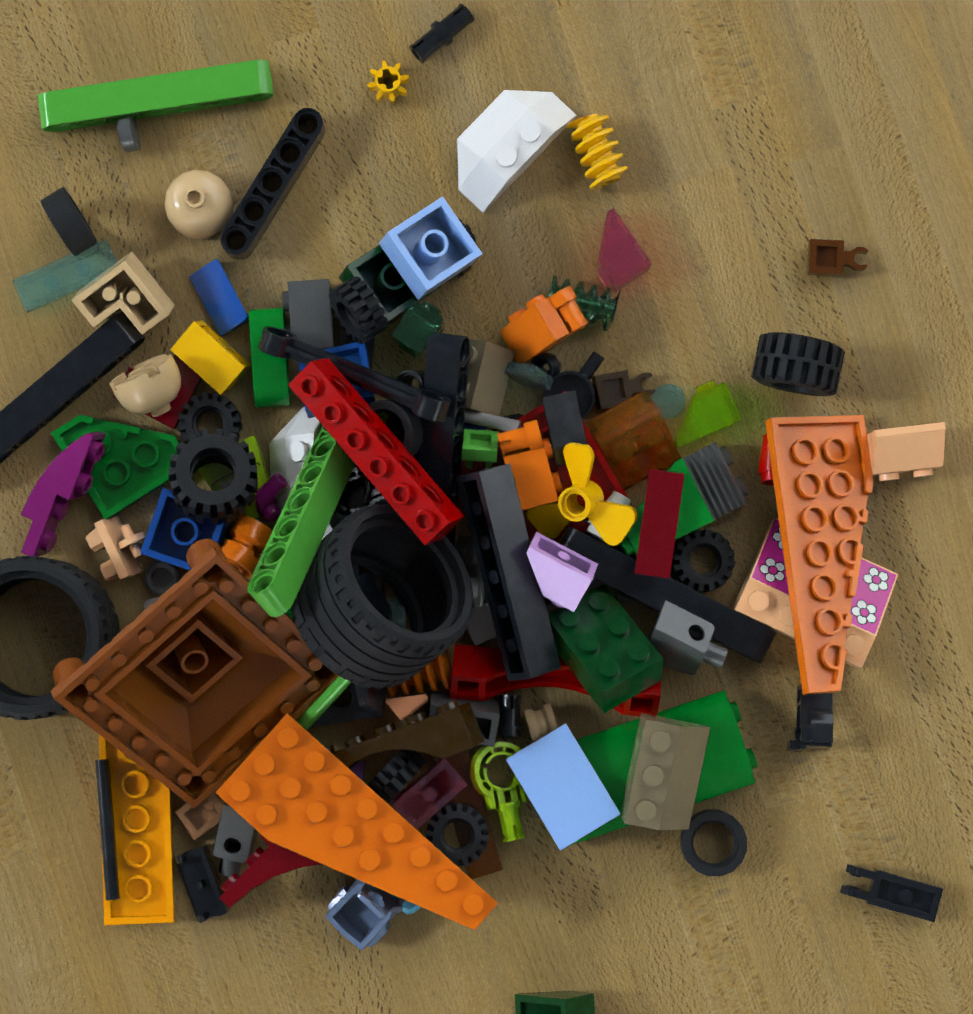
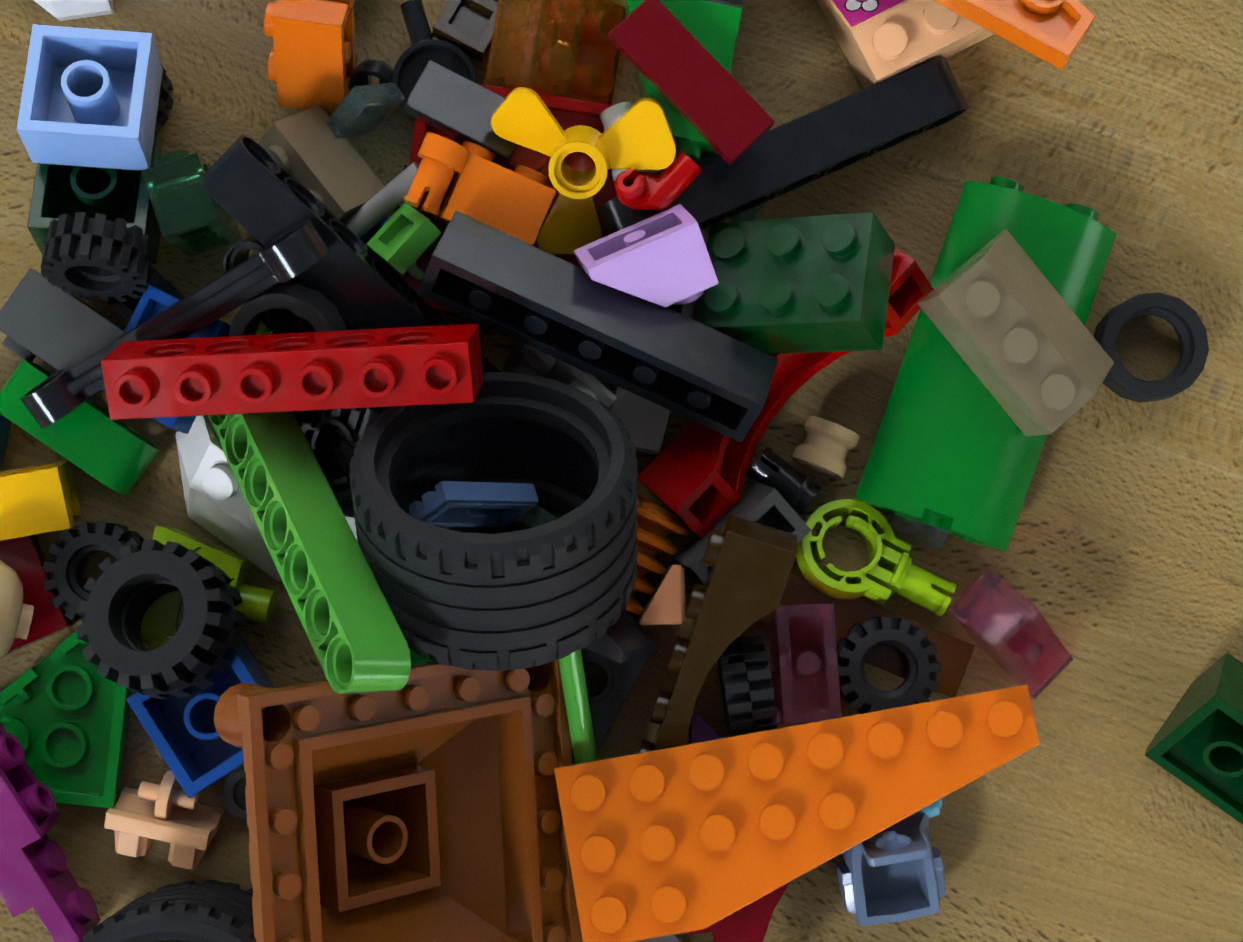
camera: 55 degrees left, 0 degrees up
(246, 544) = (283, 643): orange wheel -> none
(266, 497) = (248, 571): magenta arm -> none
(380, 578) = (474, 504): none -> medium blue tile
(521, 883) = (1011, 632): none -> clear pink slope
(563, 787) = (935, 480): light blue tile -> none
(595, 547) = (656, 190): none -> red arm
(685, 640) = (866, 171): dark grey torso -> none
(724, 560) = (790, 48): black tyre -> none
(813, 722) = (1087, 93): black piece -> none

